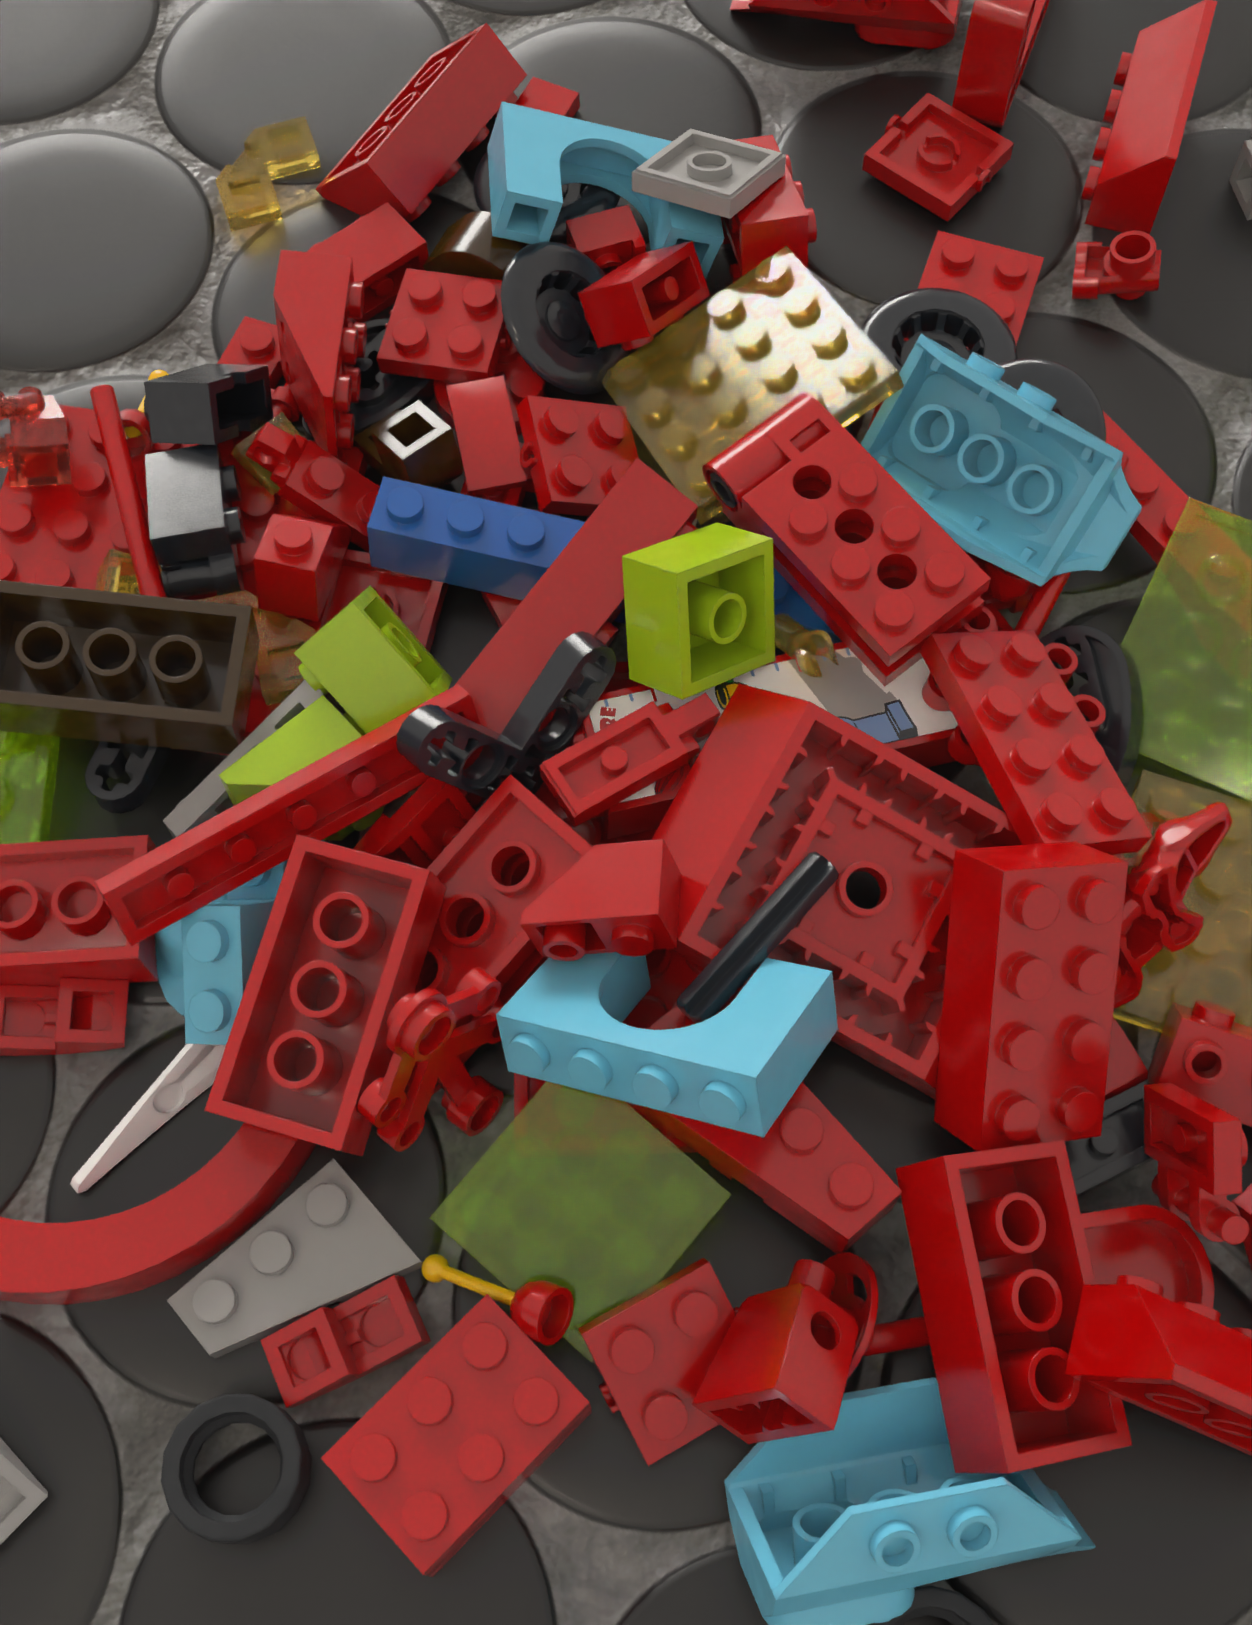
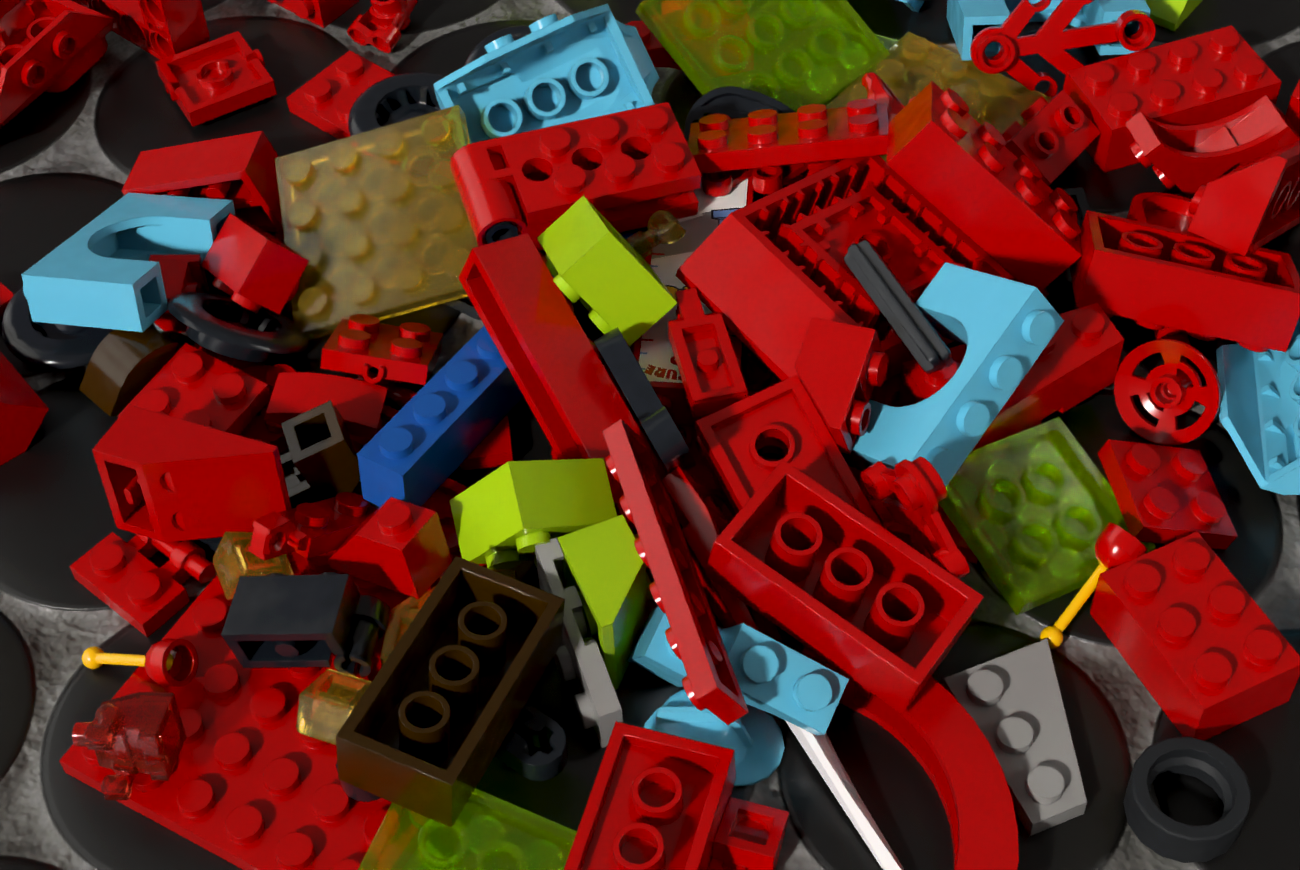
camera: 70 degrees left, 15 degrees down
(127, 491) = (251, 663): red bar -> none
(208, 403) = (186, 581): black brick -> none
(345, 1341) = (1095, 708): red slope -> none
(381, 251) = (65, 452): red brick -> none
(709, 173) = (175, 179): light grey plate -> none
(782, 1361) = (1196, 407): red torso -> none
(1198, 1160) = (1103, 153): red plate -> none

